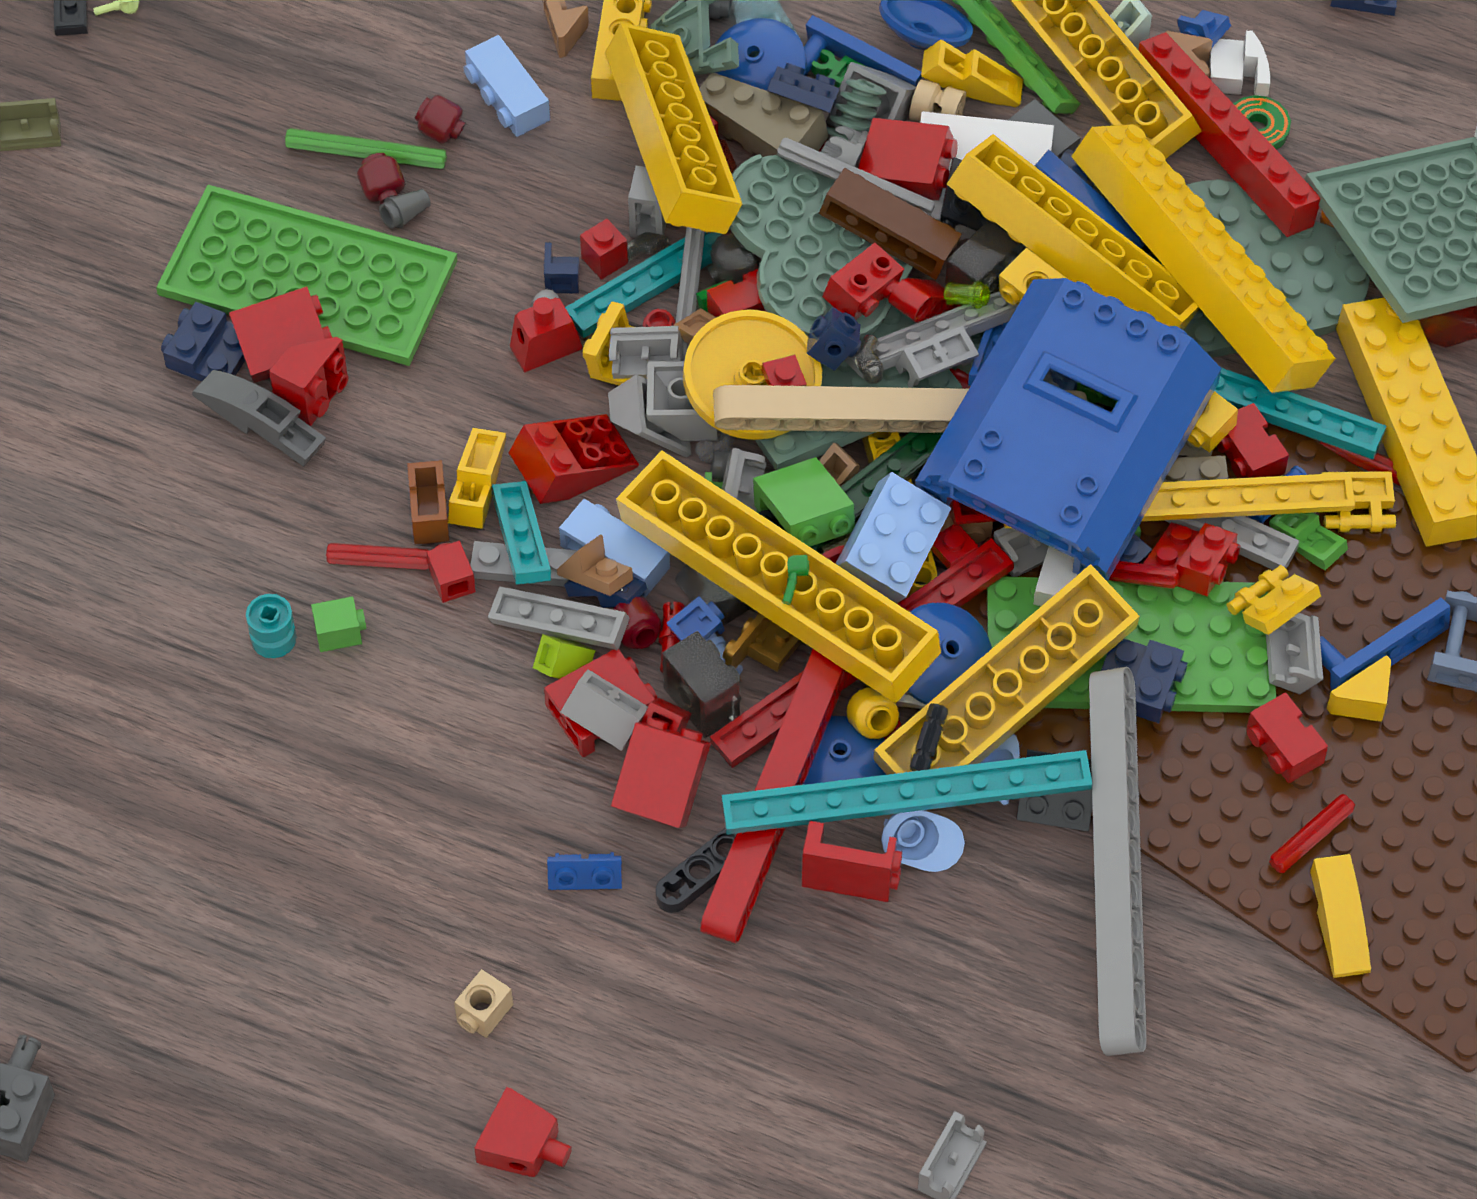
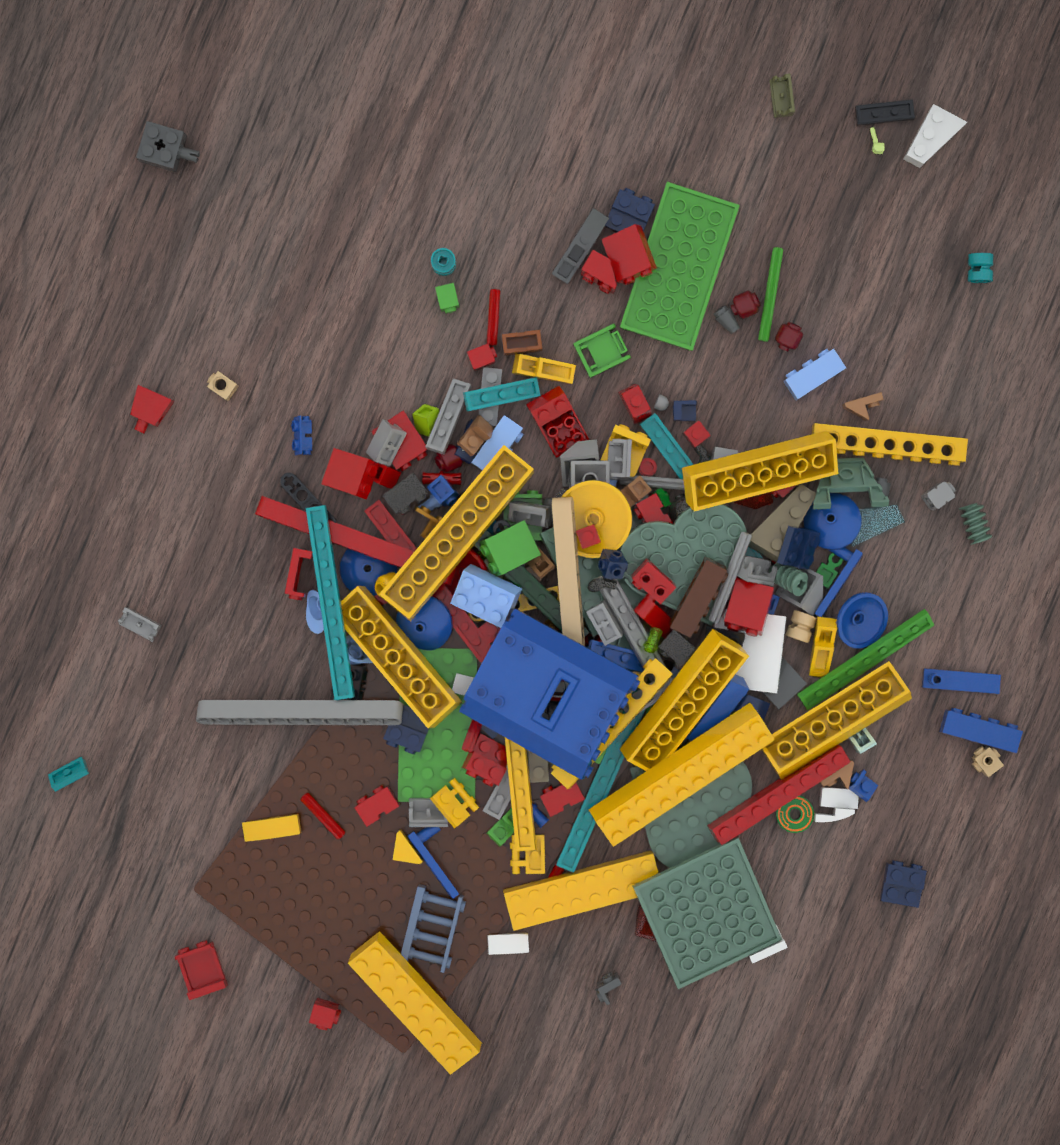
camera: 90 degrees right, 30 degrees up
(449, 388) = (604, 348): none -> bright green container
(797, 566) = (450, 544): green hand -> none
(929, 737) = (360, 614): black axle -> none

